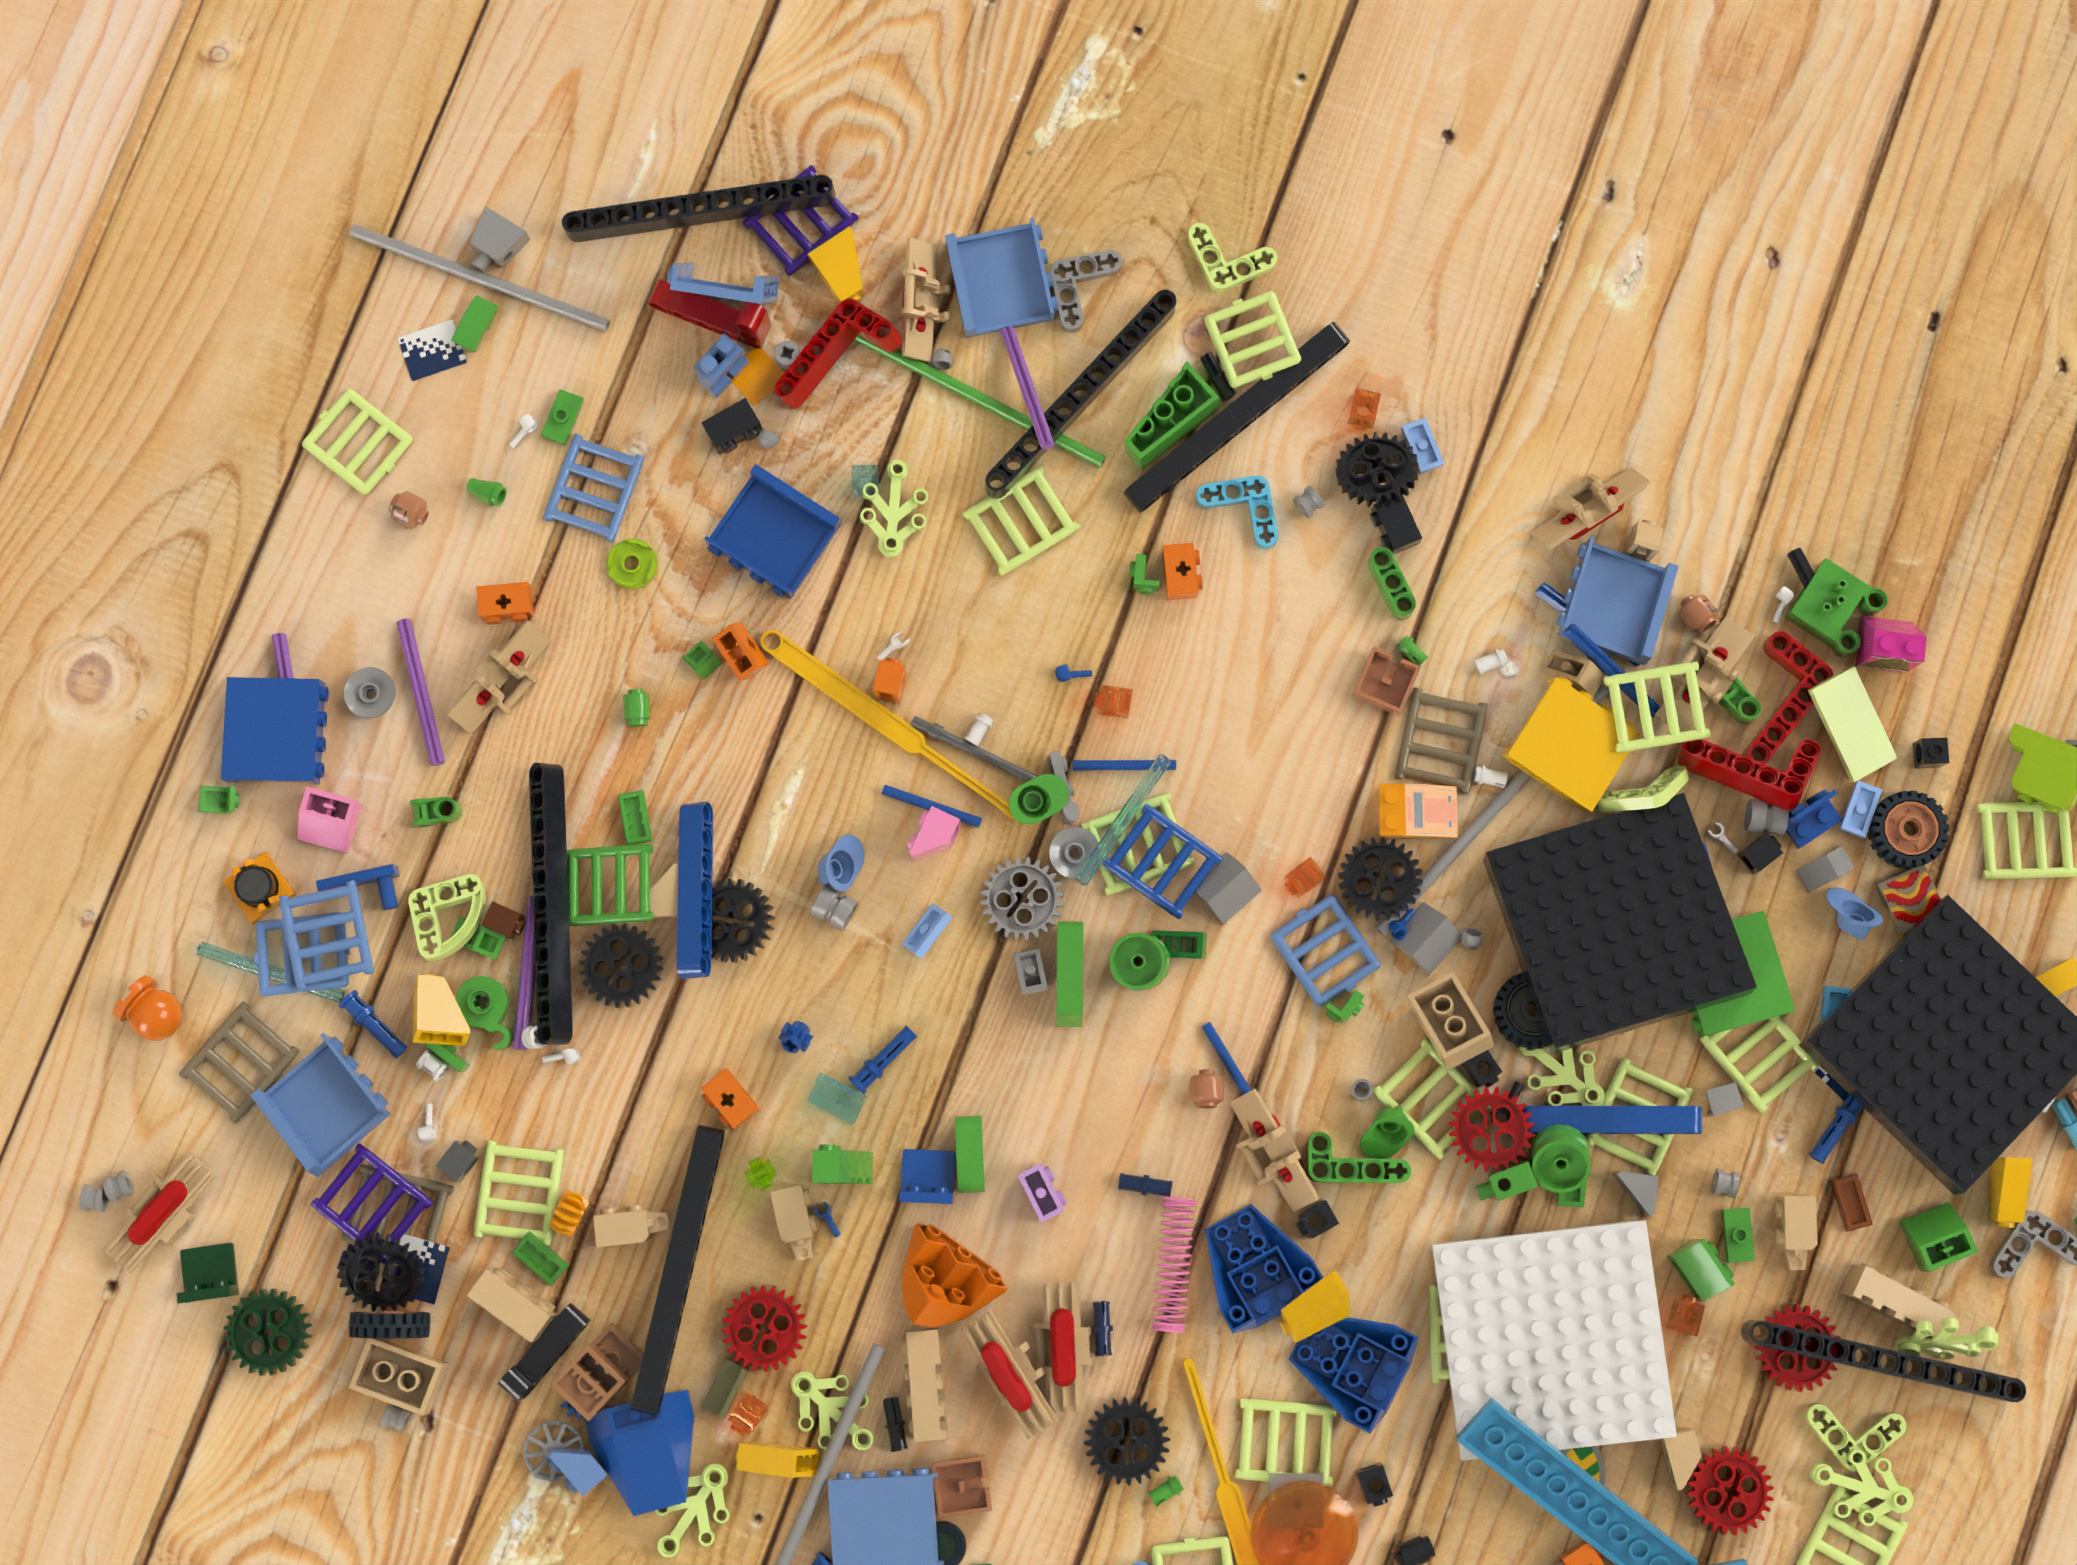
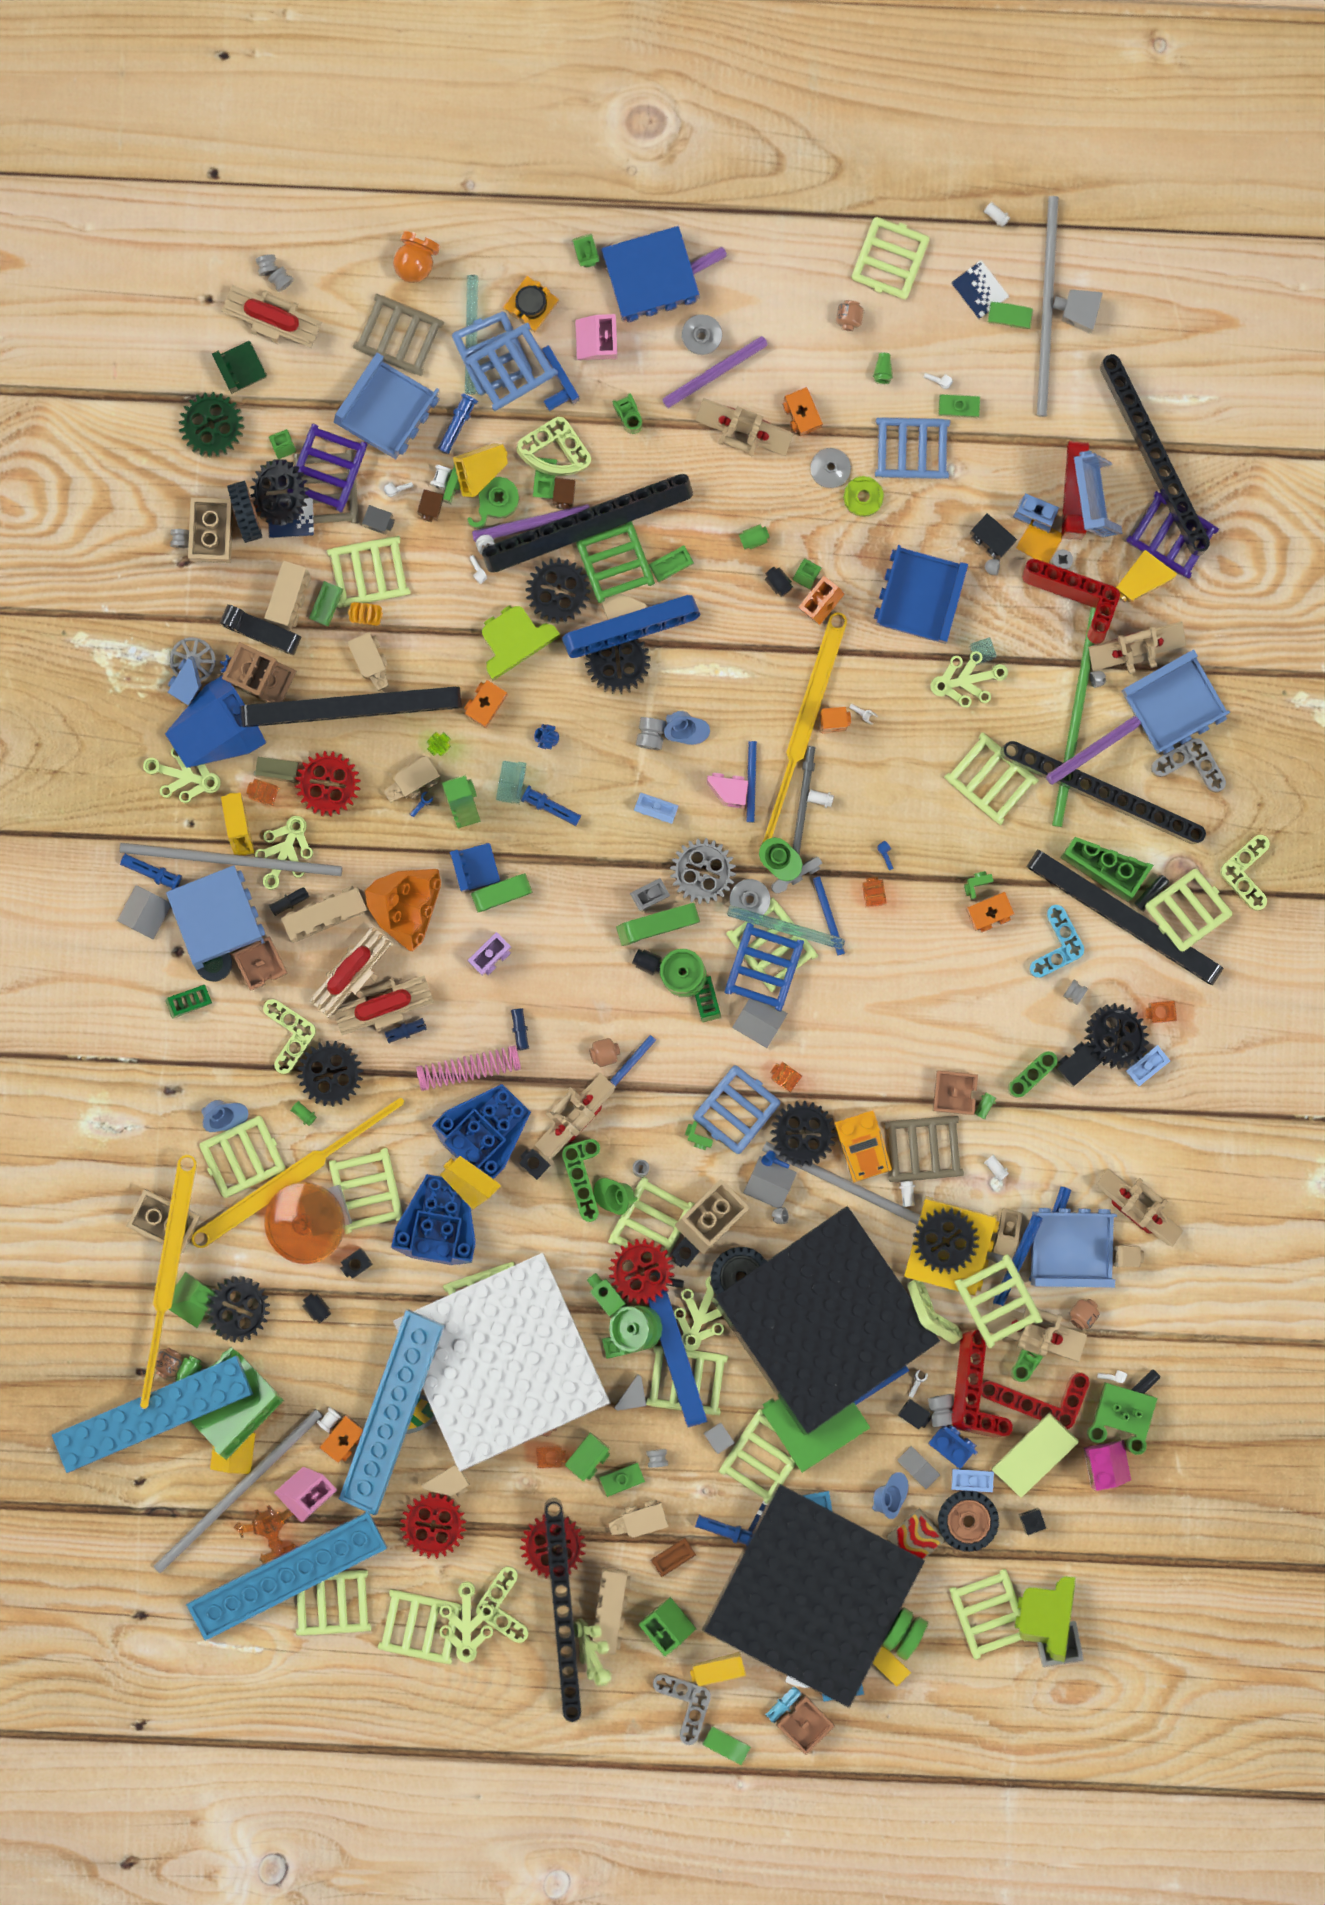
camera: 65 degrees right, 5 degrees up
(323, 1250) = (282, 444): none -> bright green slope
(350, 301) = (996, 214): none -> white pin
(463, 1090) = (430, 505): none -> reddish brown brick
(593, 600) = (826, 477): none -> light grey dish
(662, 1038) = (514, 639): none -> lime brick
(700, 695) = (778, 581): none -> black brick
(1067, 1469) = (296, 1037): none -> yellowish green beam
(1111, 1001) = (647, 961): none -> black brick
(1588, 738) = (934, 1225): none -> black gear
(2031, 945) = (907, 1634): none -> bright green wheel

